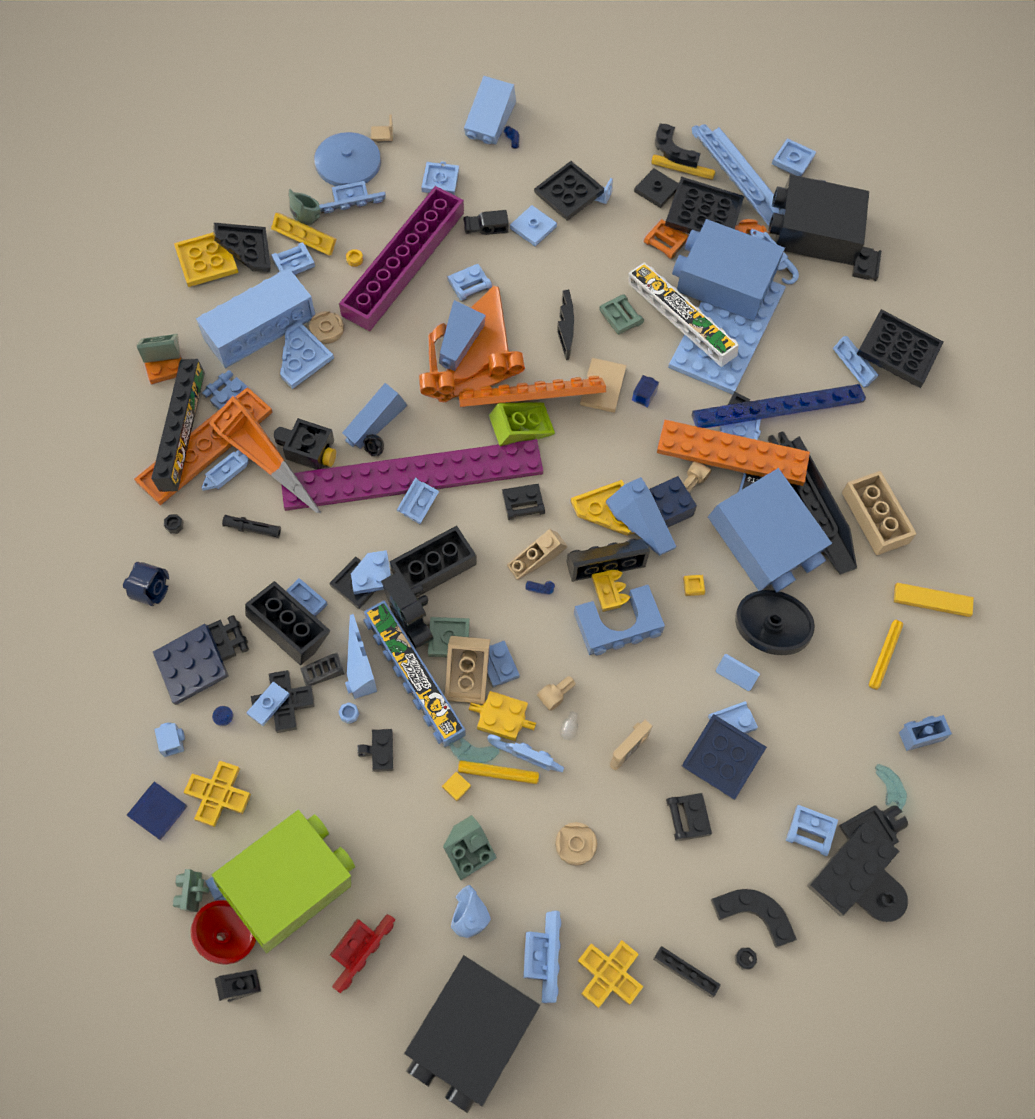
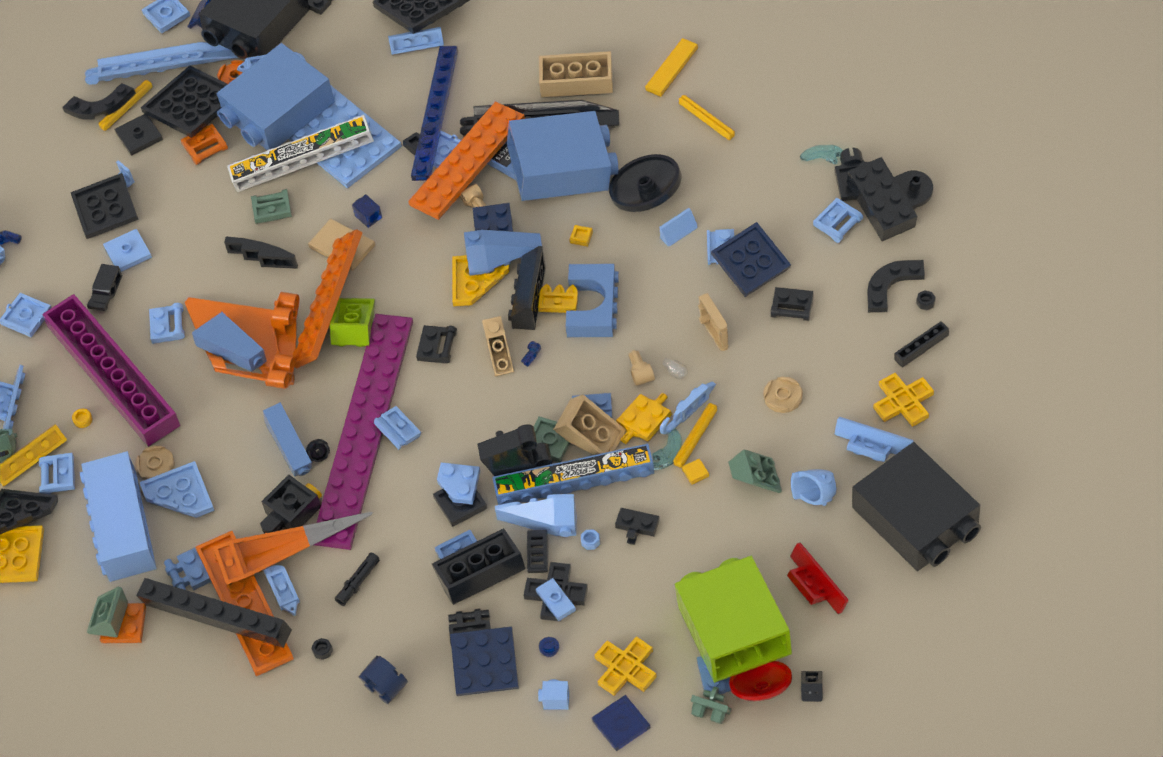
camera: 60 degrees left, 10 degrees down
(435, 560) = (468, 424): black brick -> none
(925, 732) = (787, 111): medium blue brick -> none

